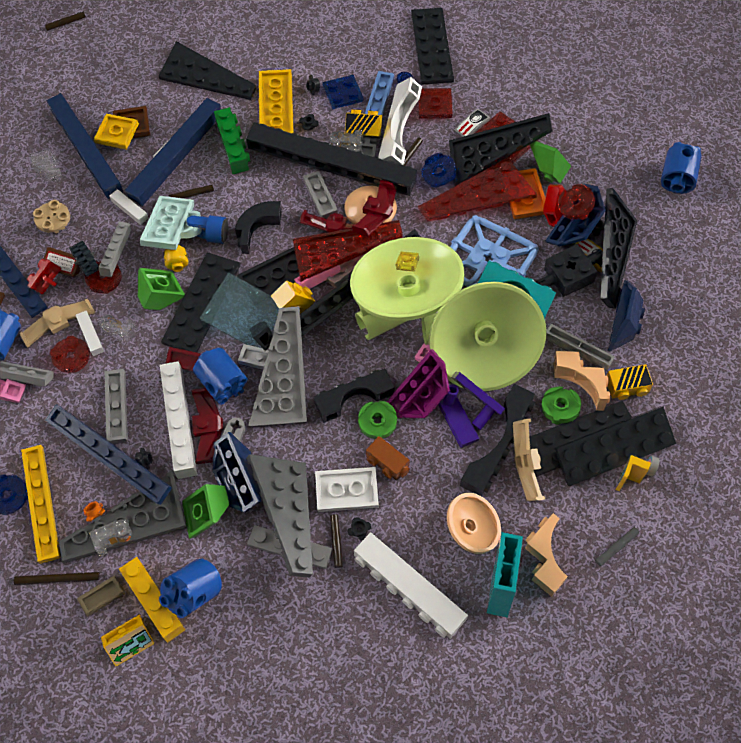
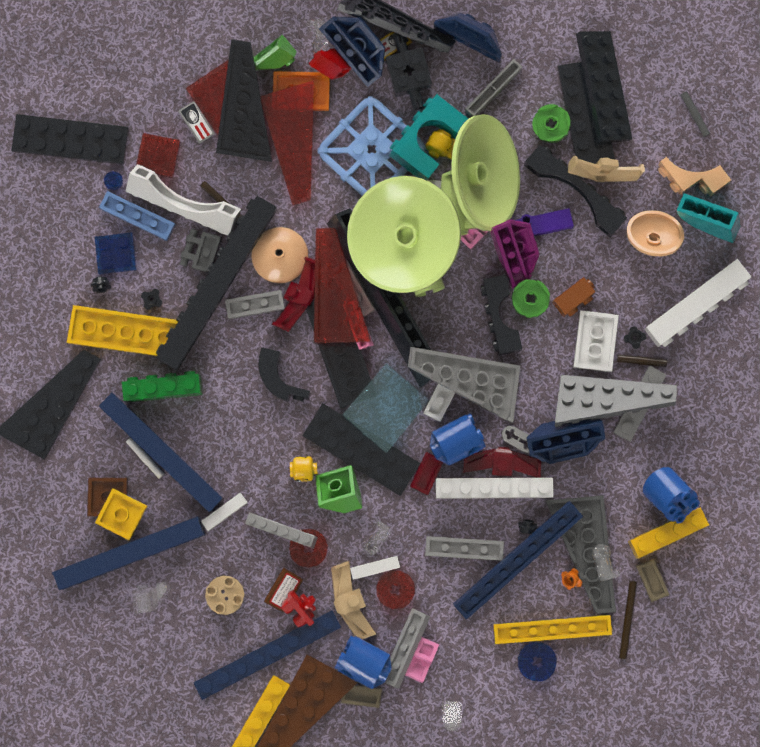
camera: 75 degrees left, 20 degrees up
(84, 258) = (296, 561): black wheel -> none
(127, 640) = (697, 560): panel -> none
(175, 220) = (264, 461): light aqua plate -> none
(193, 192) = (218, 442): dark brown piece -> none
(204, 508) = (592, 474): bright green slope -> none
(262, 334) = (421, 392): black brick -> none
(293, 295) = (387, 353): yellow brick -> none
(348, 140) = (199, 262): clear leg -> none
(368, 123) = (175, 239): brick -> none
(376, 209) = (297, 246): dark red plate -> none
(407, 261) = (381, 230): clear yellow plate -> none
(440, 178) = (246, 181): clear blue plate -> none
(491, 405) = (539, 189): dark purple piece -> none
(579, 210) = (355, 42): clear red plate -> none
(593, 380) = (536, 85): light nougat arch -> none
(629, 382) = (541, 53): yellow brick -> none
(633, 470) = (633, 84): yellow panel -> none
(654, 465) = (628, 60): light grey tile -> none

